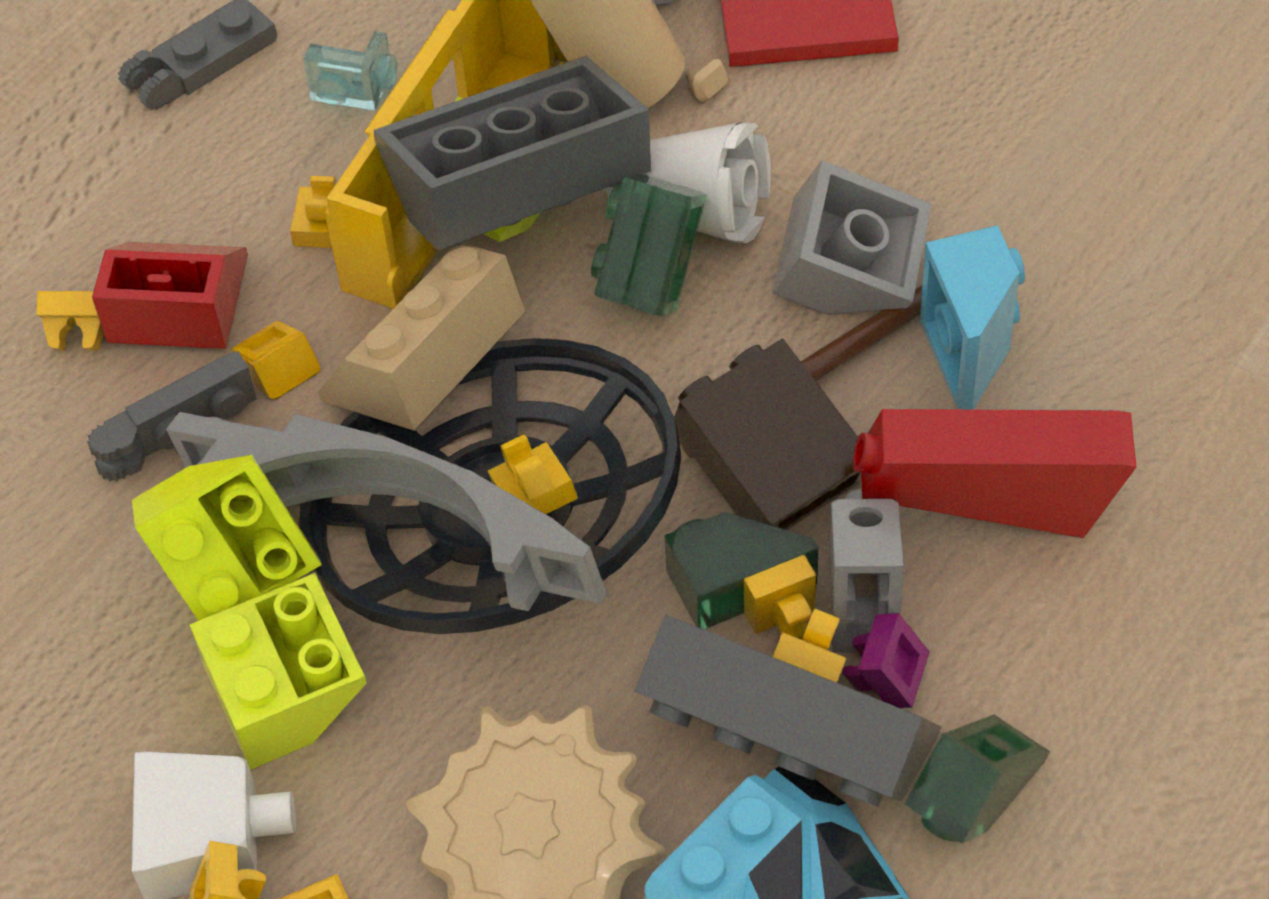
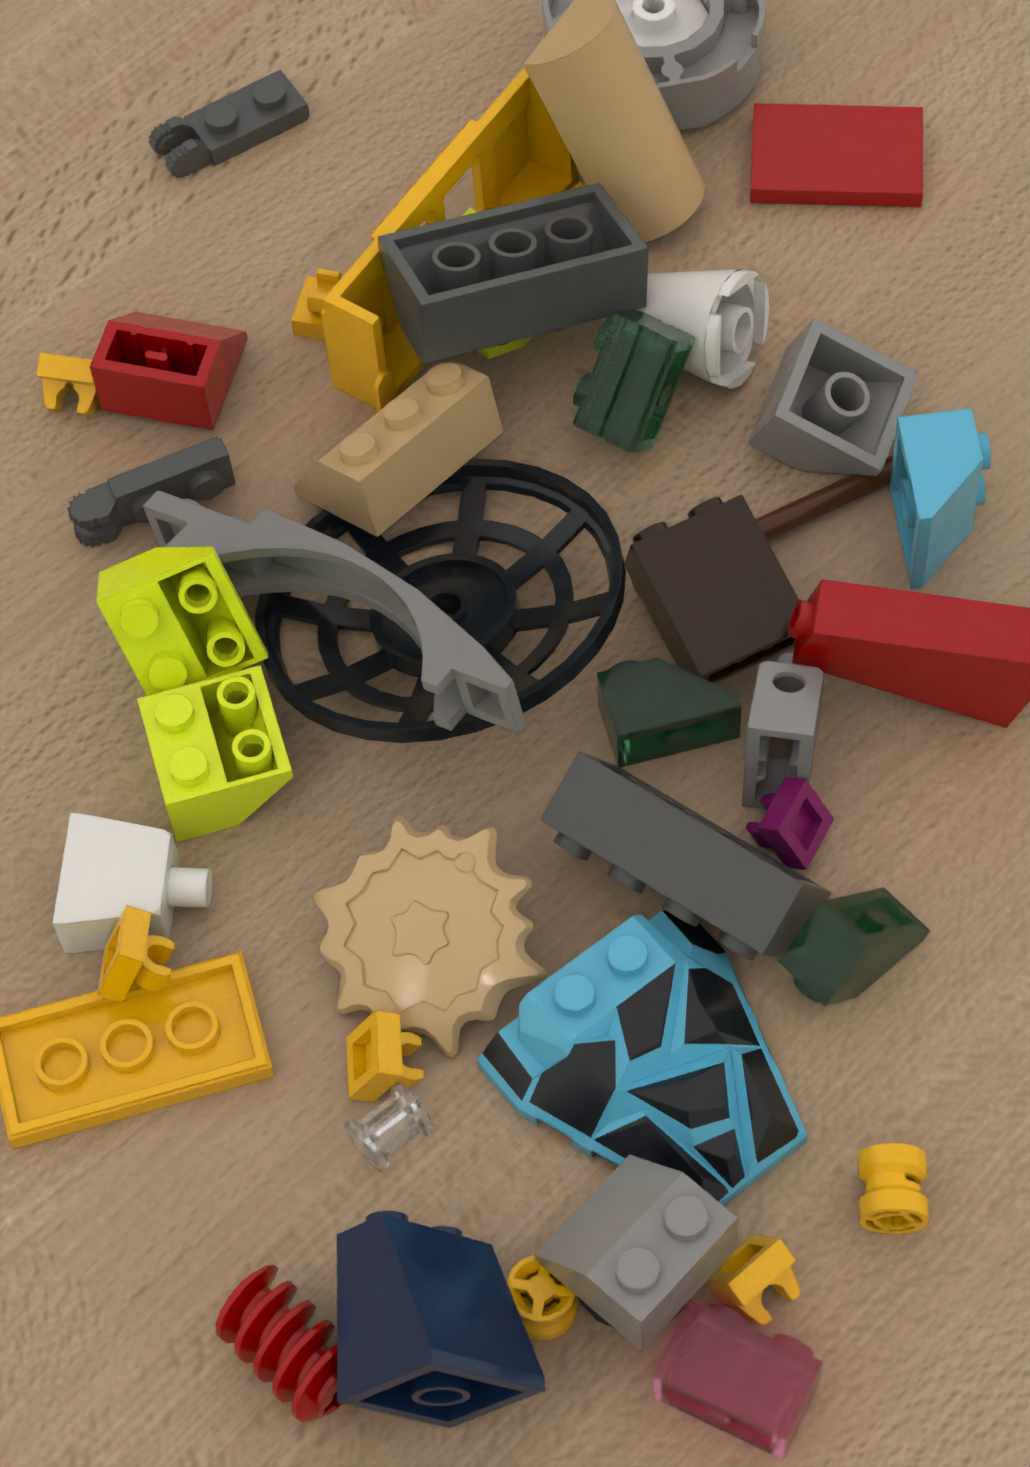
camera: 10 degrees right, 5 degrees up
(278, 358) = (260, 446): yellow slope -> none
(350, 75) = (372, 168): clear light blue bracket -> none
(533, 475) = (477, 601): yellow tile -> none
(707, 80) = (724, 214): tan rock -> none
(781, 597) = (701, 749): yellow tile -> none
(812, 651) = (717, 804): yellow tile -> none

